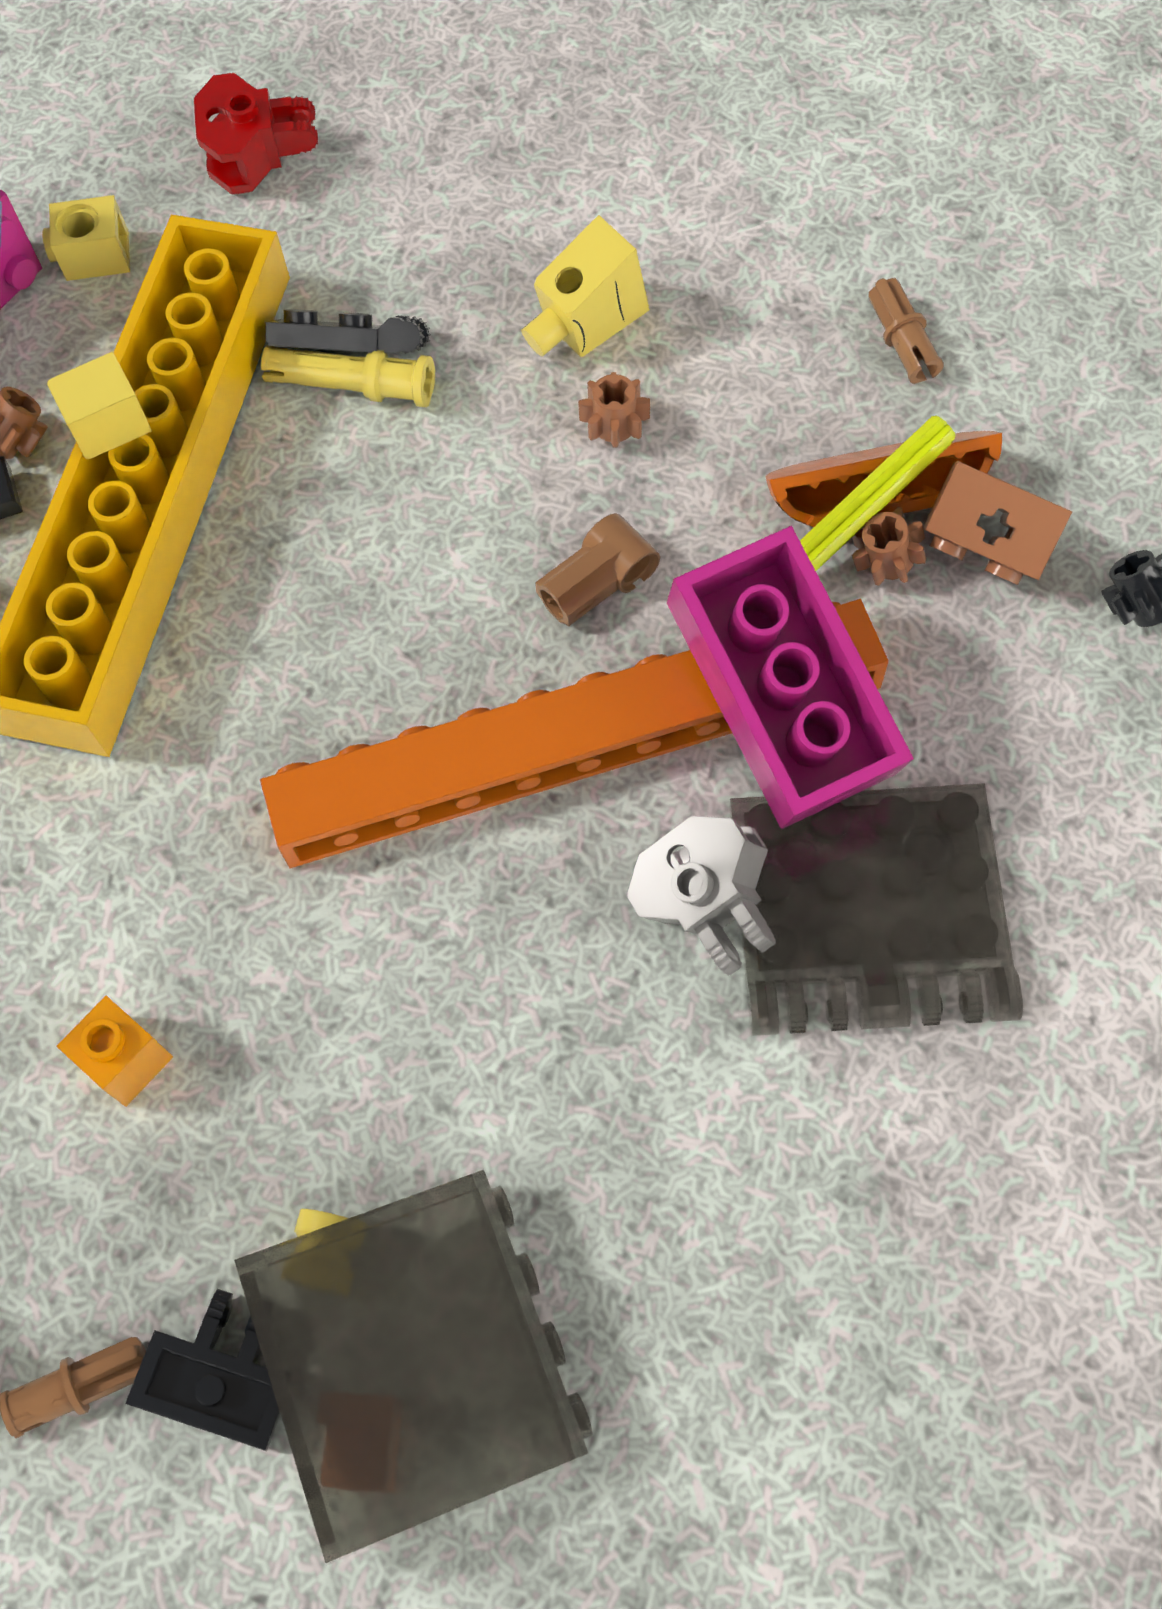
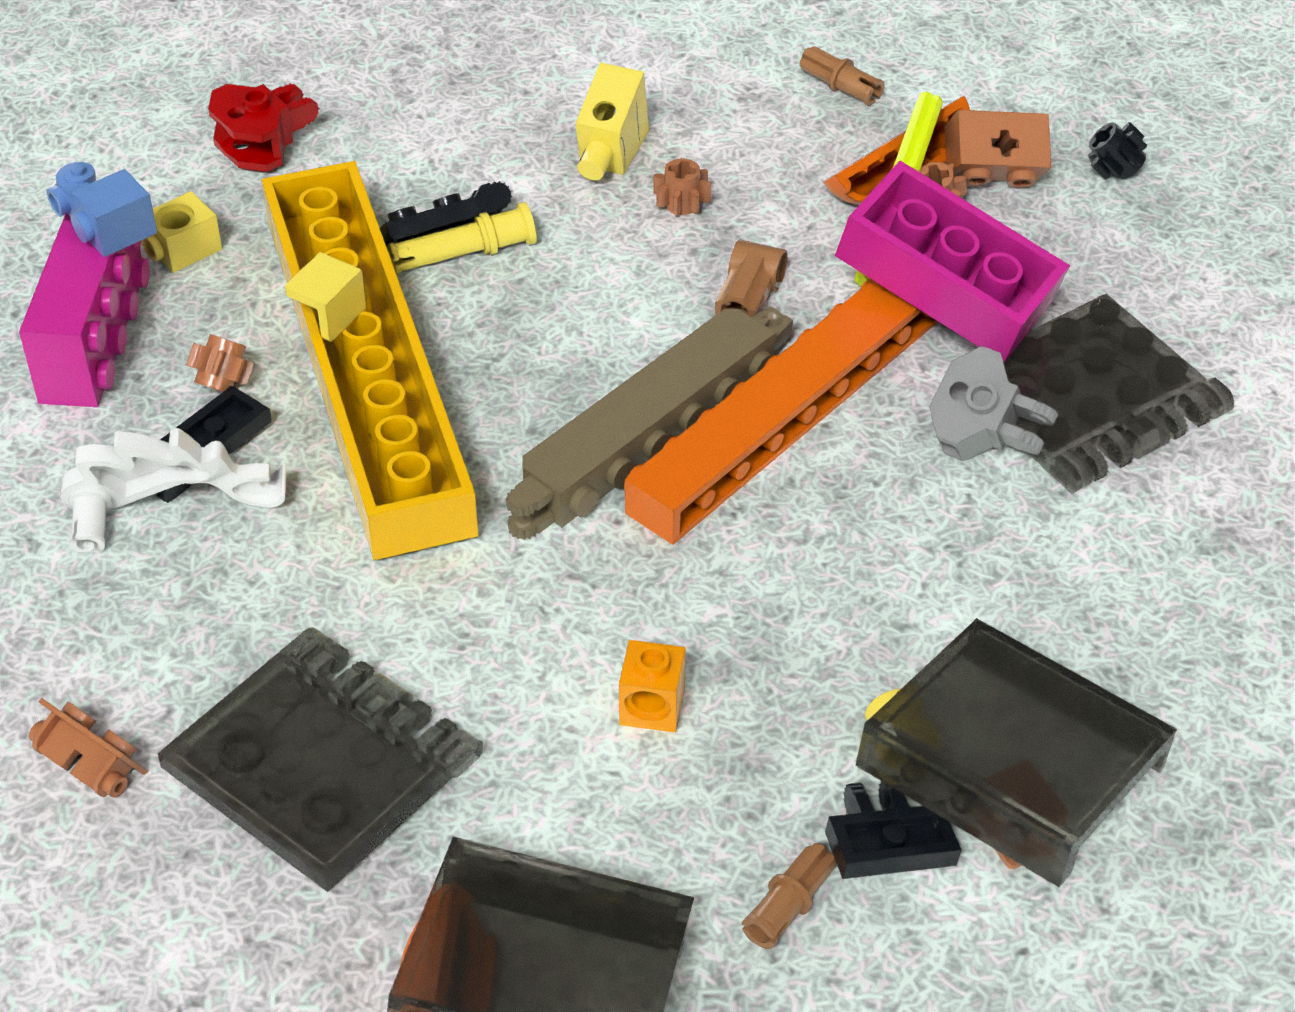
camera: 35 degrees left, 20 degrees down
(360, 696) = (638, 417): none -> dark tan hinge

